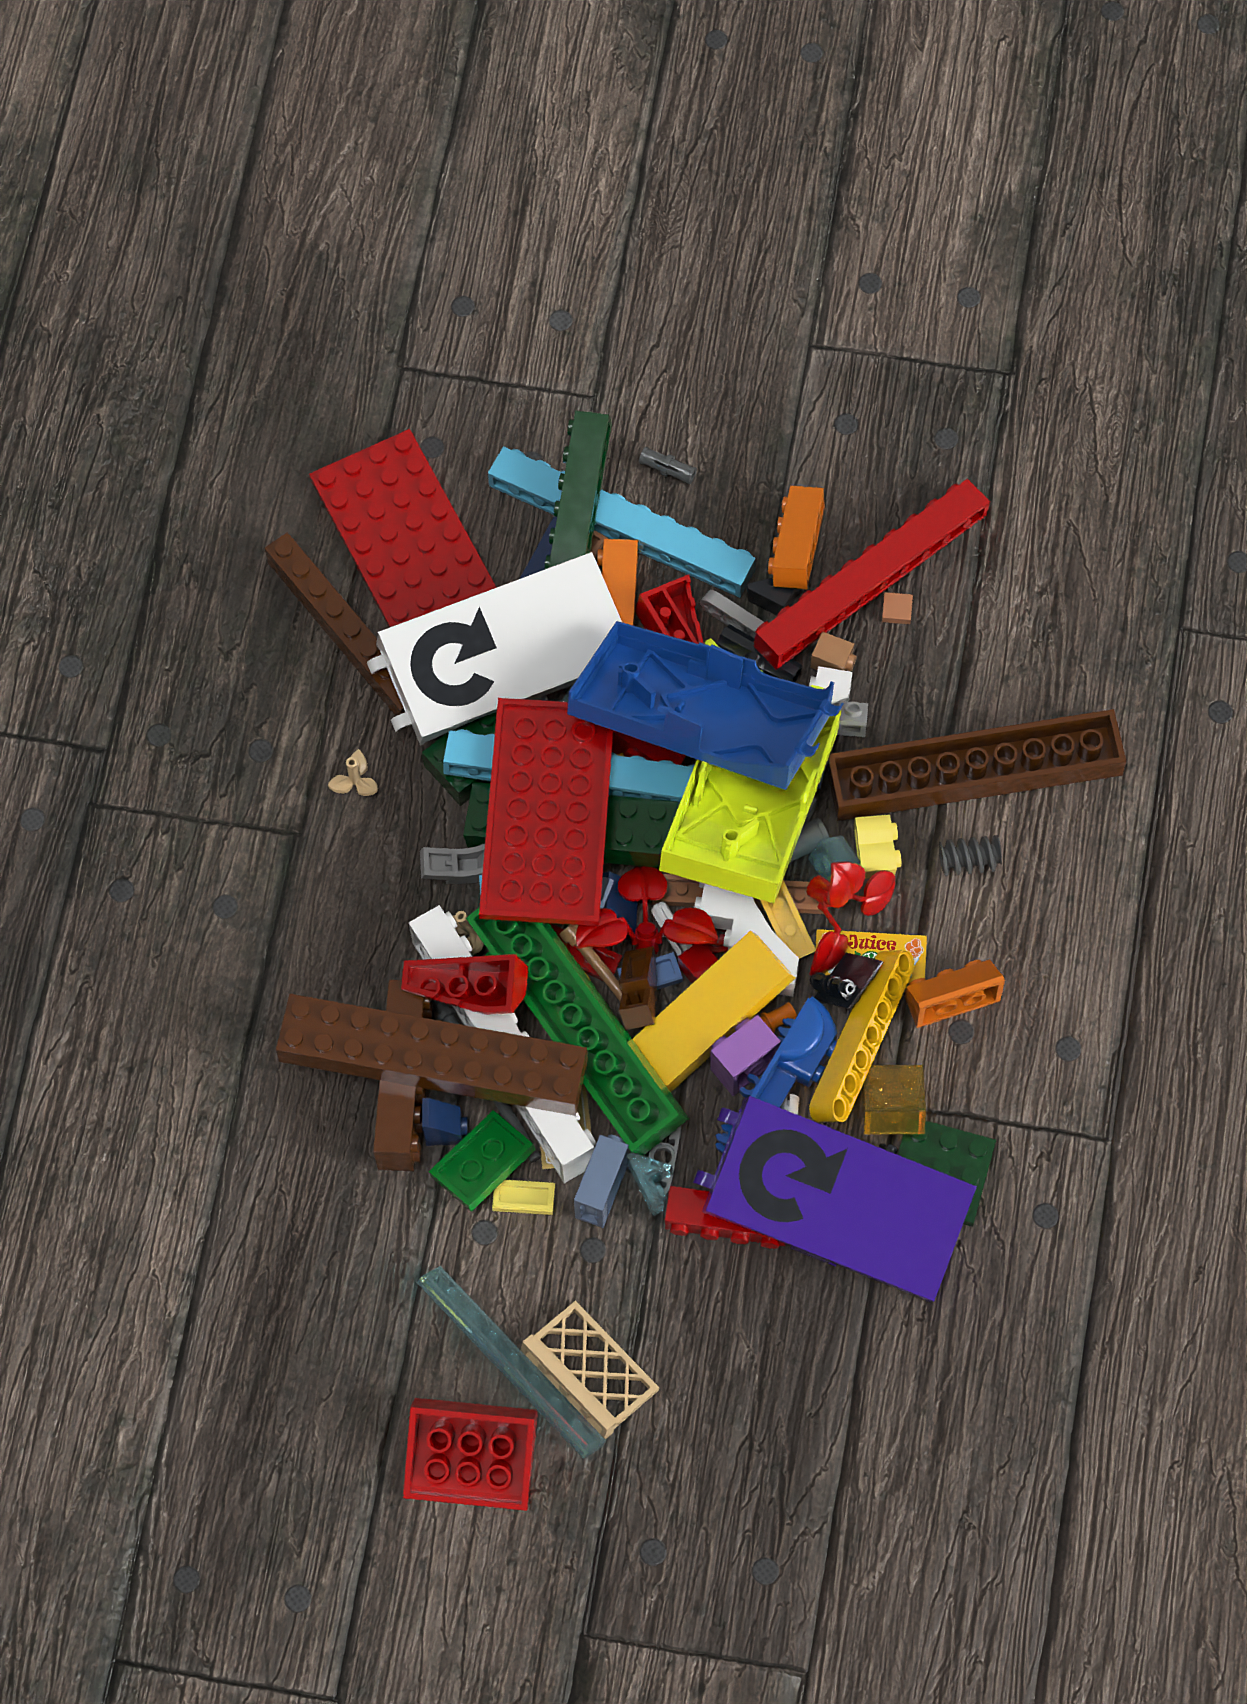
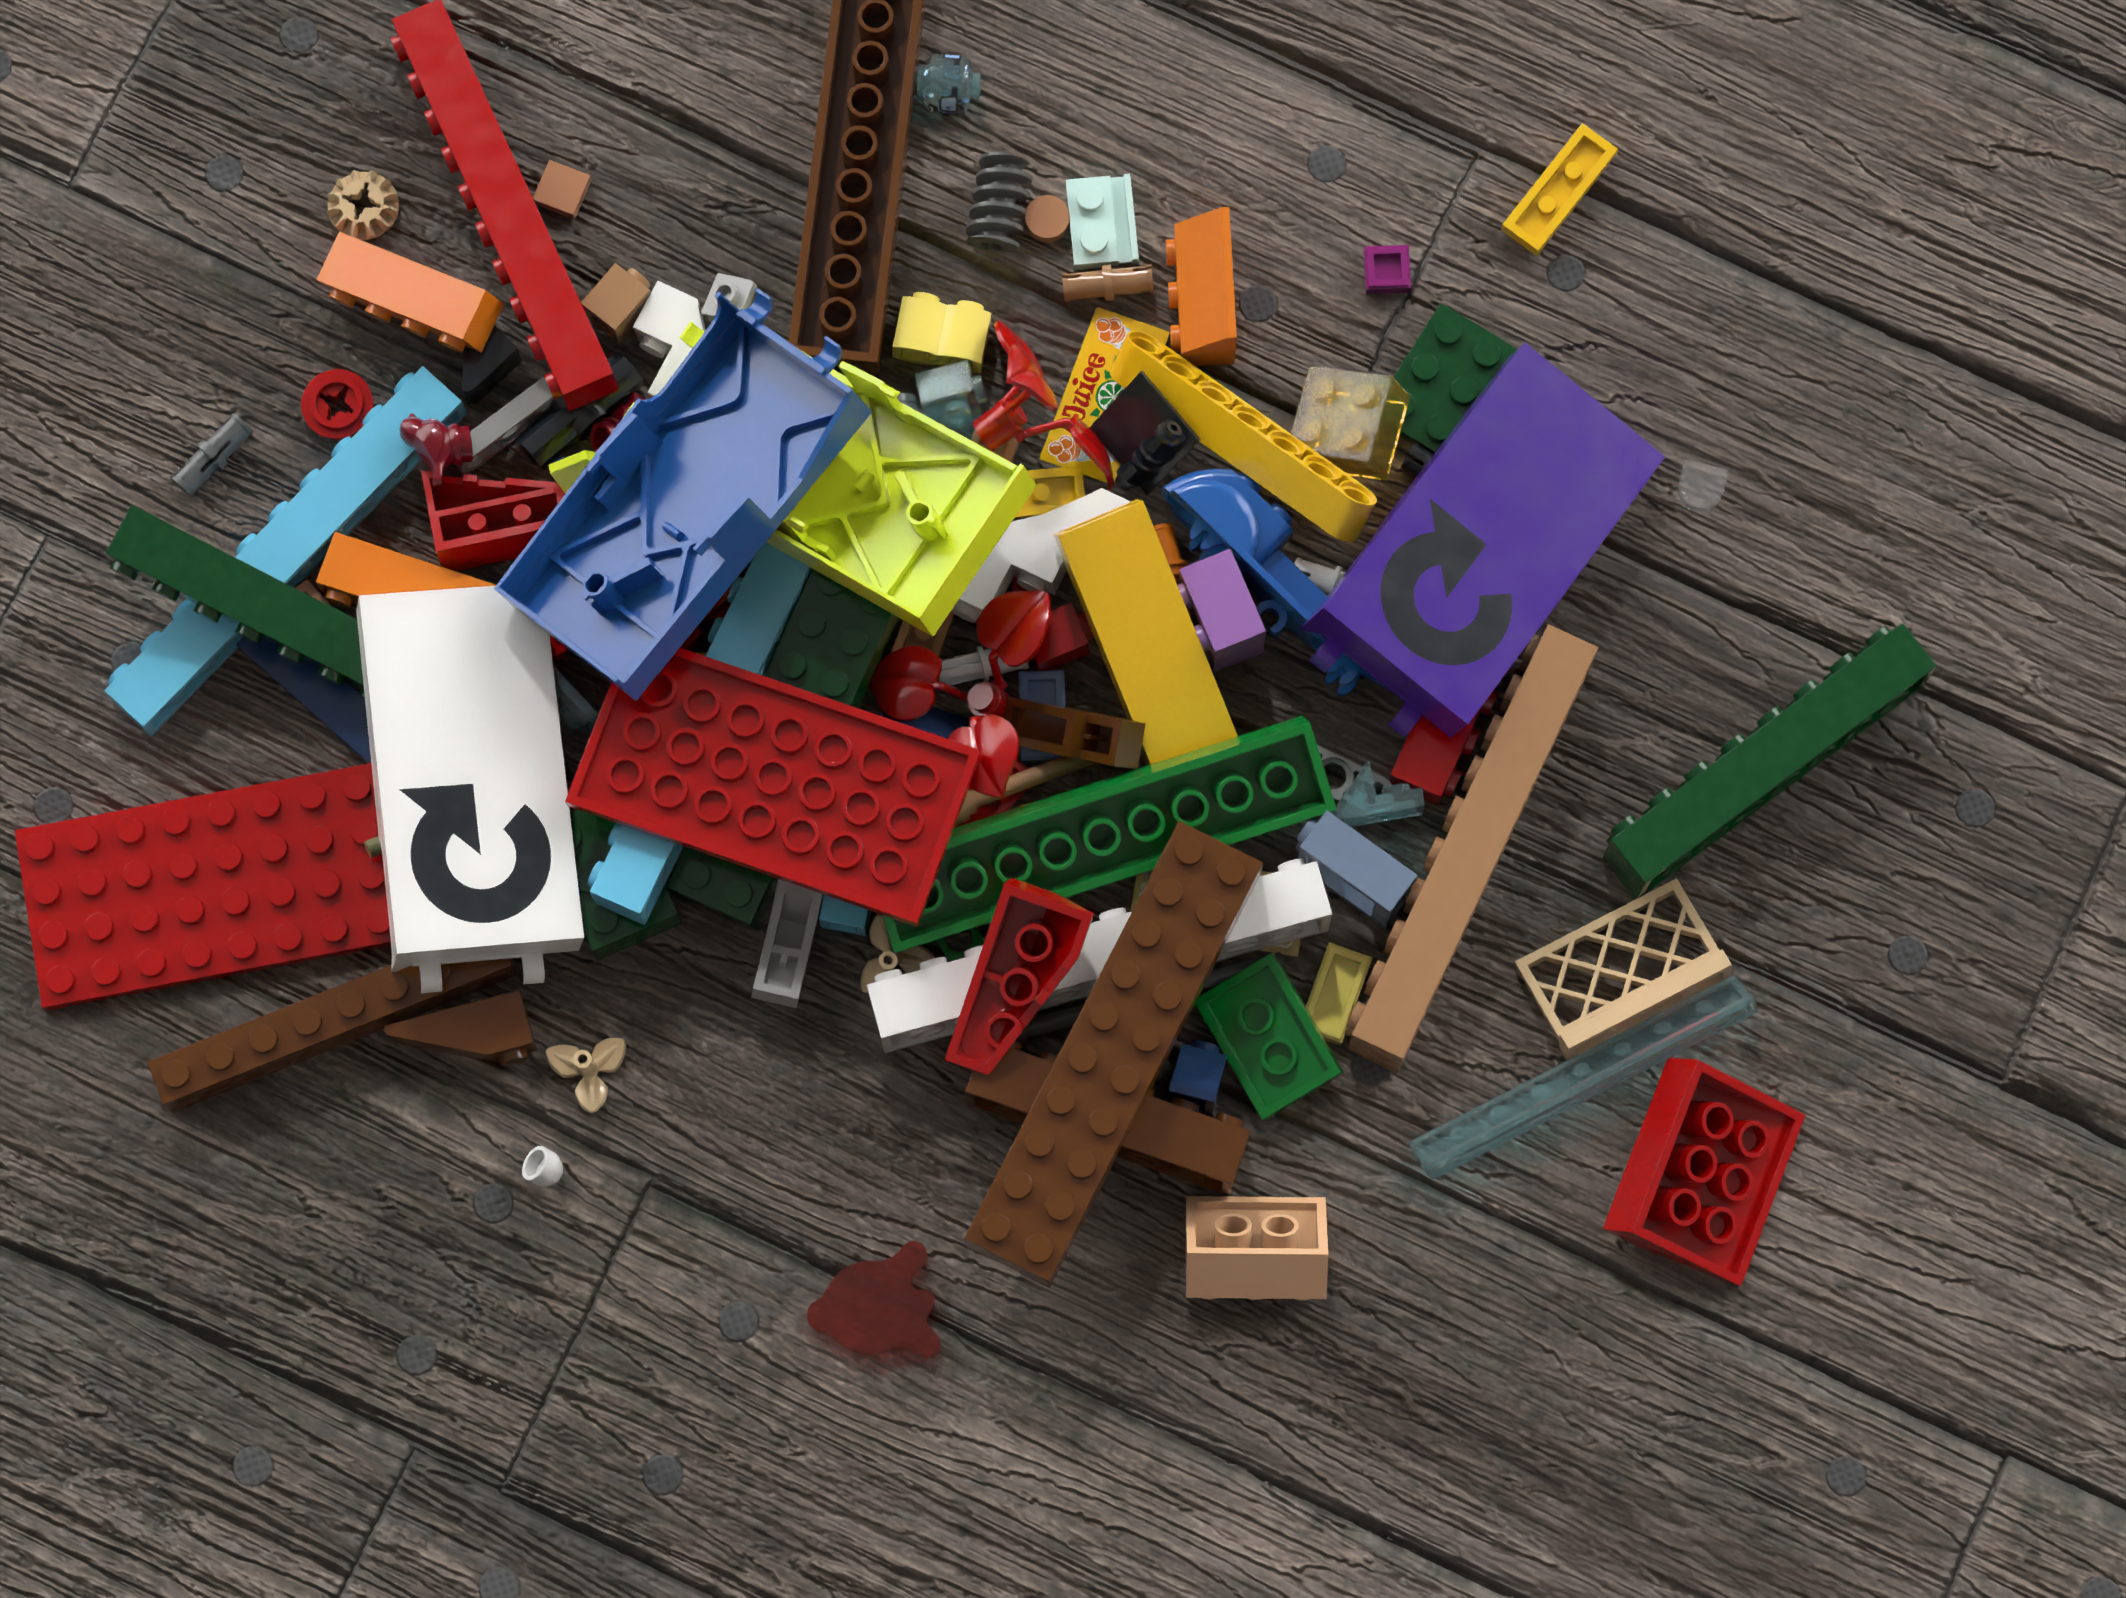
camera: 75 degrees left, 10 degrees up
(252, 981) = (877, 1308): none -> clear red tile
(287, 768) = (542, 1167): none -> white hinge
(346, 1189) = (1256, 1247): none -> light nougat slope
(361, 712) = (479, 1030): none -> reddish brown slope
(636, 1247) = (1474, 843): none -> medium nougat brick
(706, 577) = (437, 444): none -> dark red animal
(712, 516) = (332, 385): none -> red gear
(750, 1419) = (1769, 760): none -> dark green brick
(842, 511) = (372, 221): none -> tan gear
(927, 1336) = (1701, 485): none -> clear tile
(942, 935) = (1108, 282): none -> medium nougat pin
(973, 889) = (1047, 219): none -> nougat tile
(982, 922) = (1102, 221): none -> light aqua plate
(1009, 1102) = (1387, 269): none -> magenta tile
(1039, 805) = (948, 83): none -> clear light blue head
(1097, 1193) = (1559, 189): none -> yellow plate

